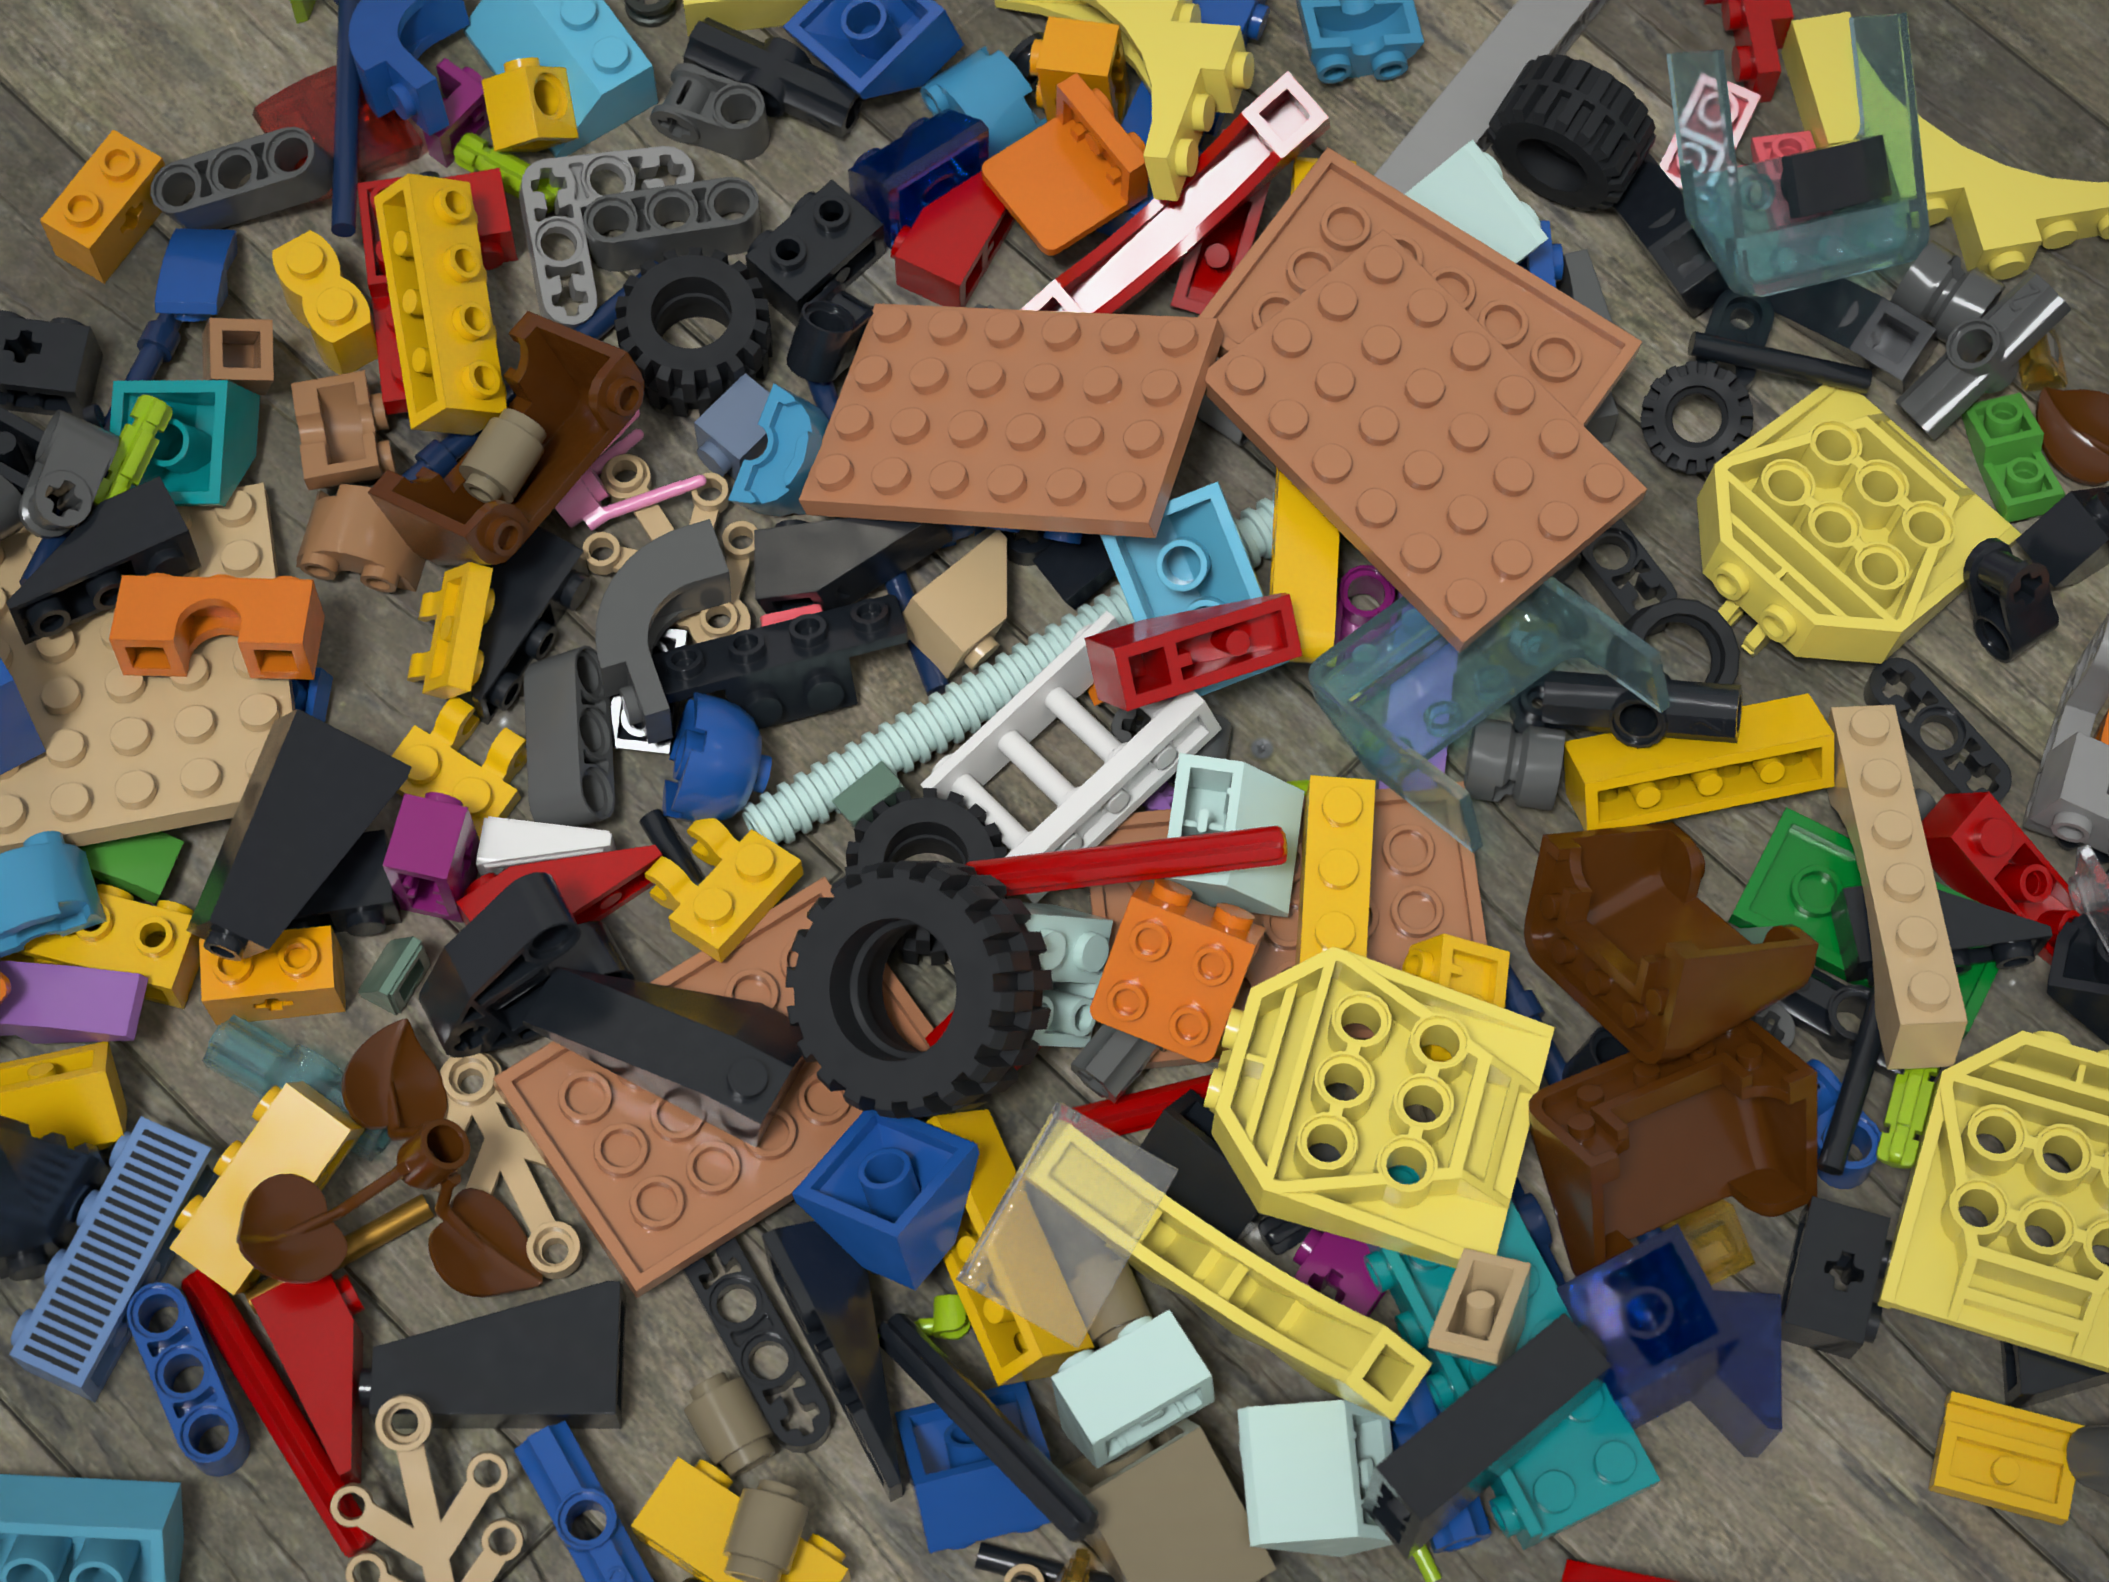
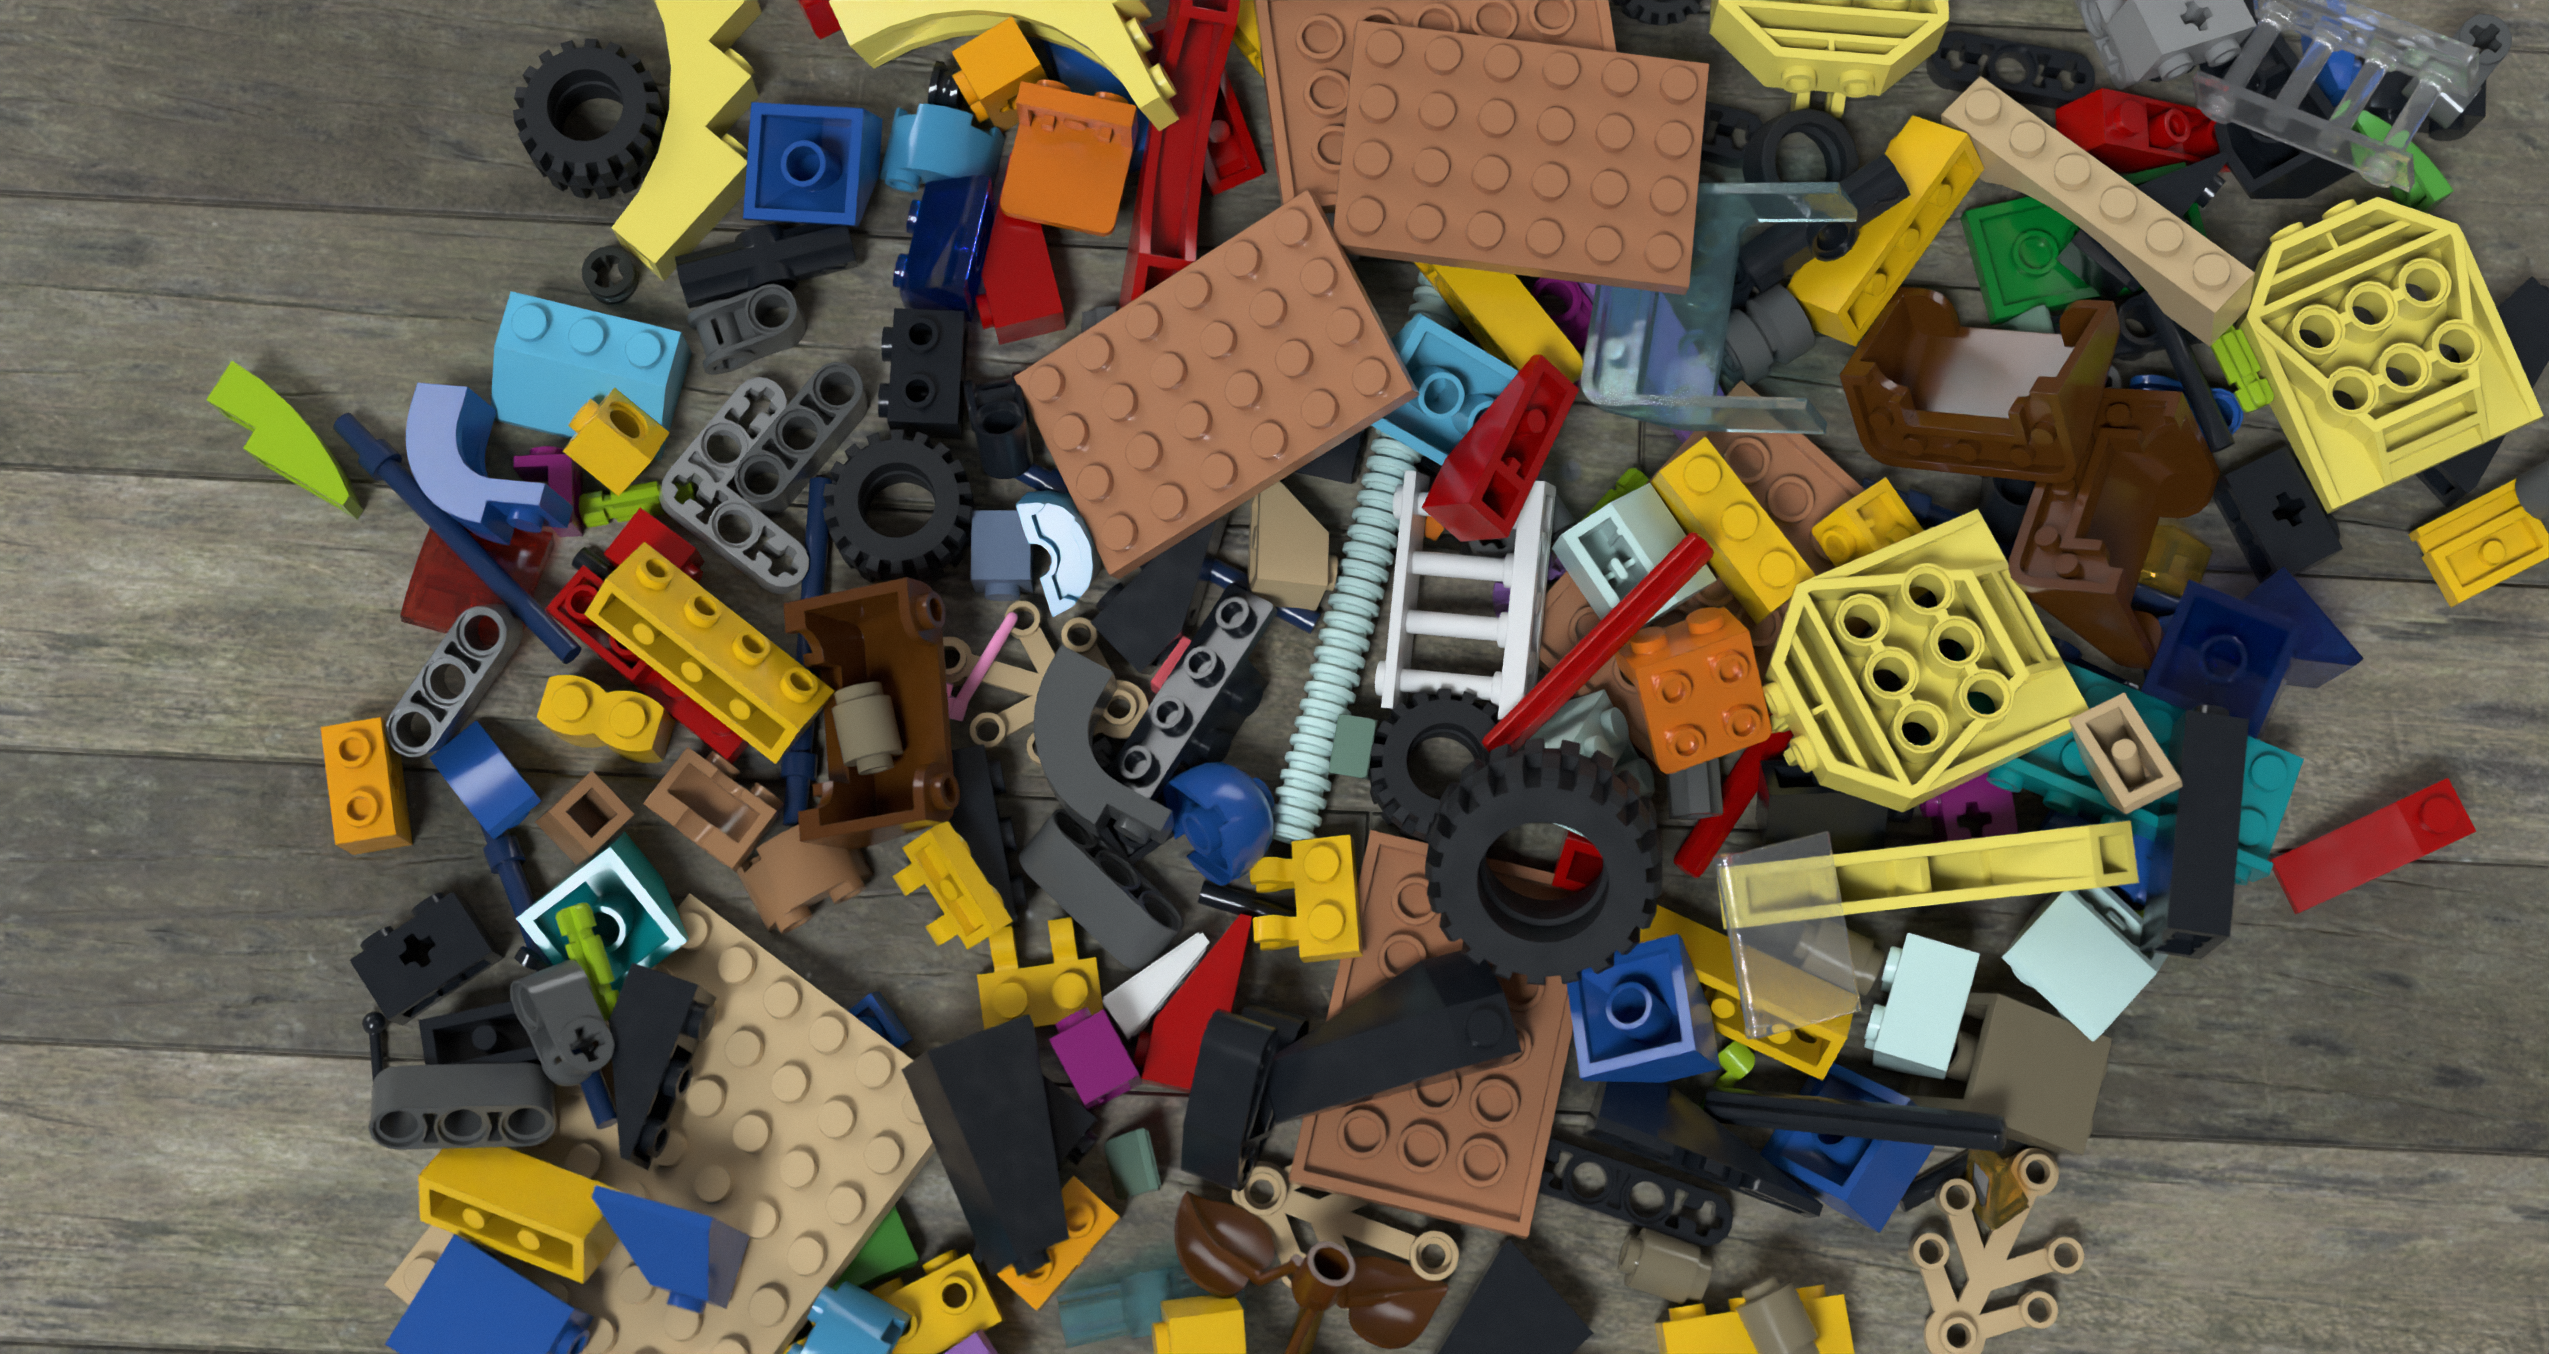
camera: 45 degrees left, 10 degrees up
(167, 617) = (741, 1061): orange arch -> none

